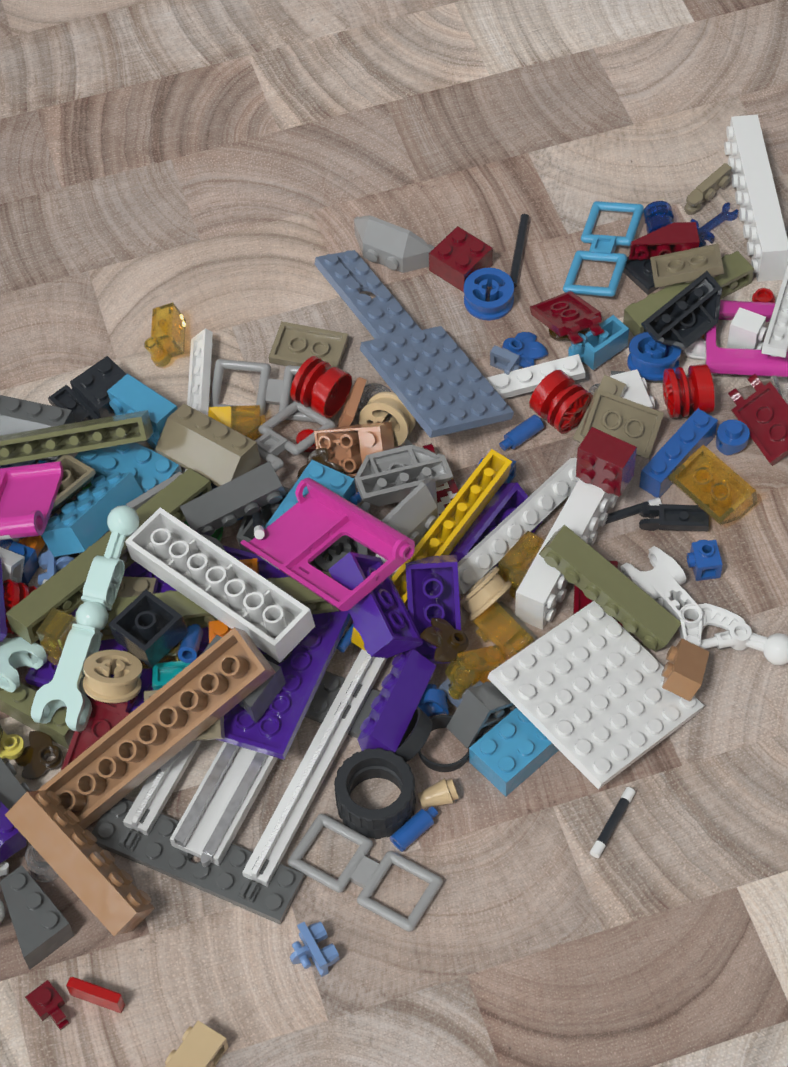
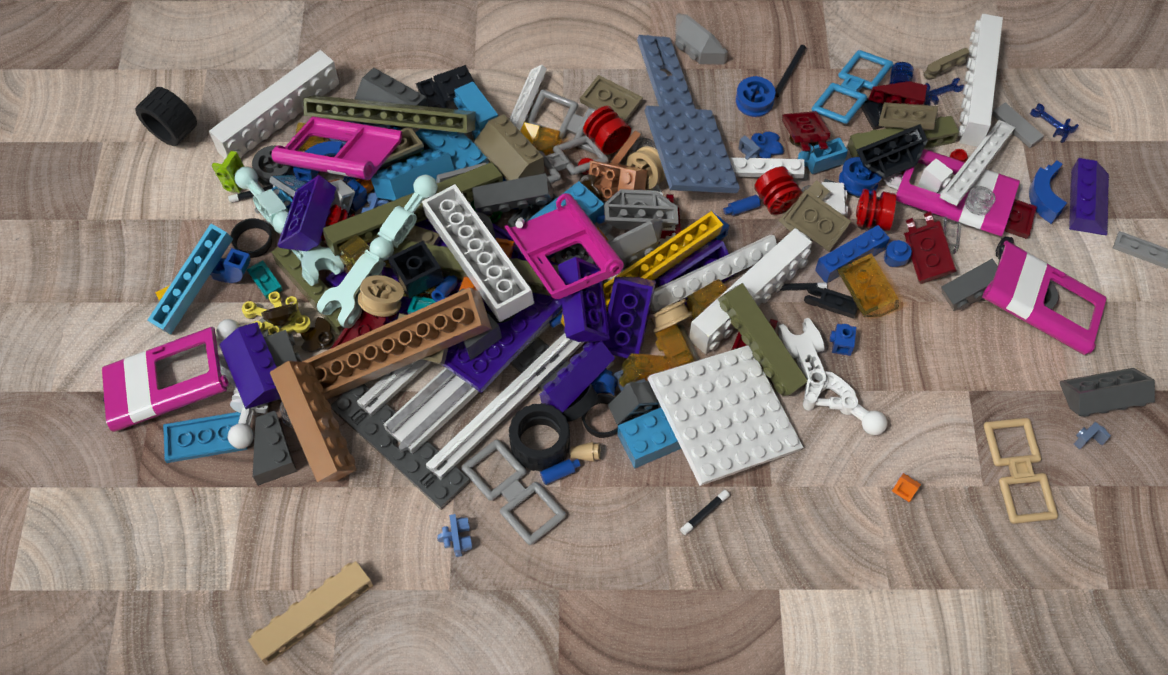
camera: 15 degrees right, 5 degrees up
(47, 1003) = (259, 513): dark red plate -> none
(95, 994) = (294, 518): red tile -> none
(166, 334) = (513, 61): clear yellow hinge -> none
(446, 639) = (625, 339): dark brown plate -> none
(459, 256) = (743, 62): dark red brick -> none
(605, 461) = (791, 245): dark red brick -> none
(685, 669) = (797, 416): medium nougat brick -> none

